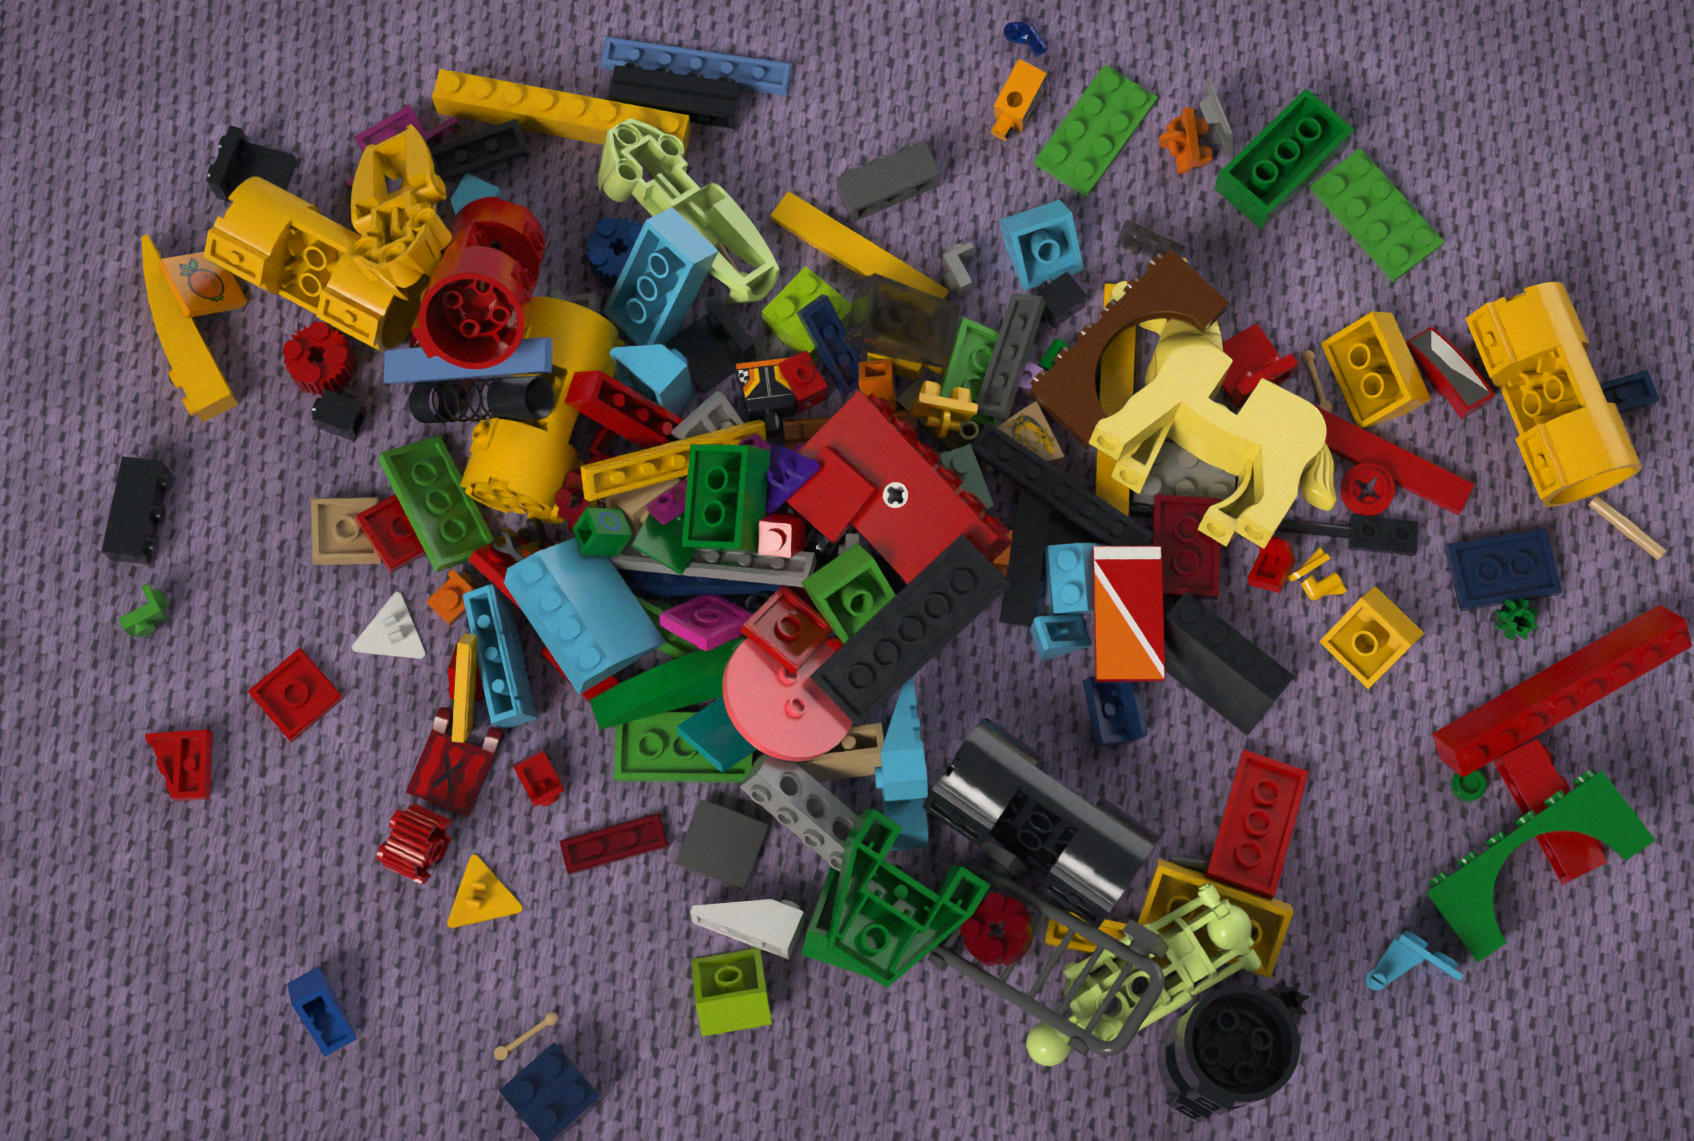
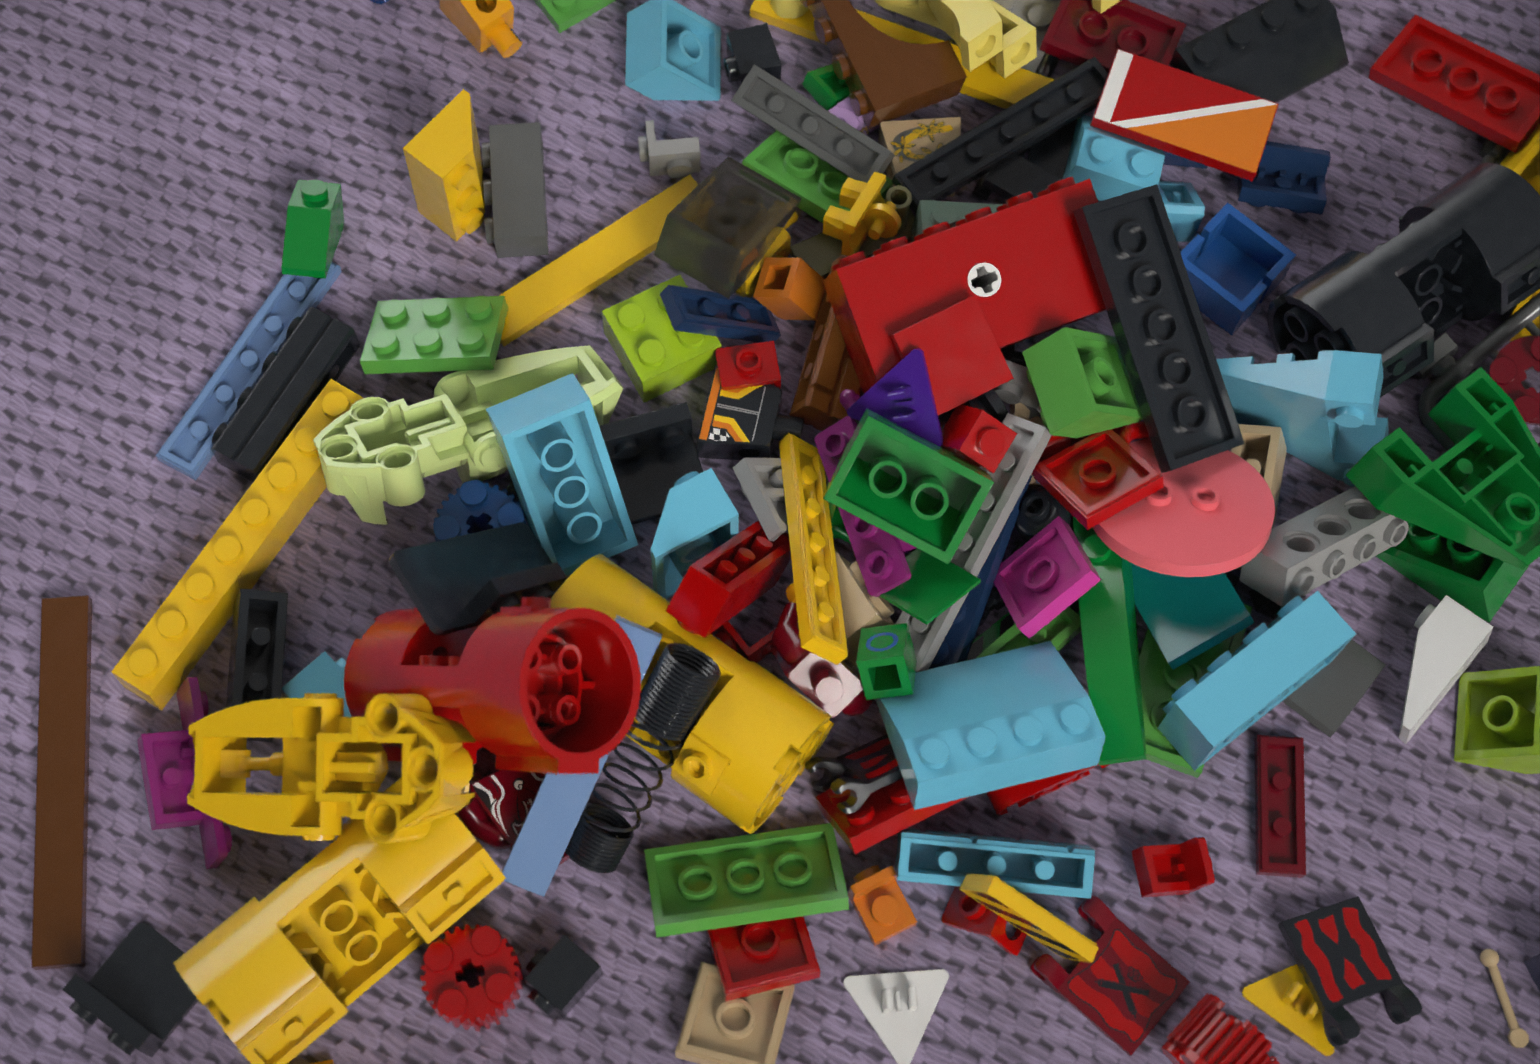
camera: 75 degrees left, 5 degrees down
(372, 75) = (62, 784): none -> reddish brown tile
(514, 914) = (1344, 965): none -> black flag
(559, 250) = (474, 575): none -> black bracket
(679, 785) = (1254, 678): none -> medium azure brick
(752, 169) = (434, 335): none -> bright green plate
(800, 62) = (312, 228): none -> green slope
(872, 126) = (448, 169): none -> yellow slope
(1014, 689) = (1234, 267): none -> blue piece

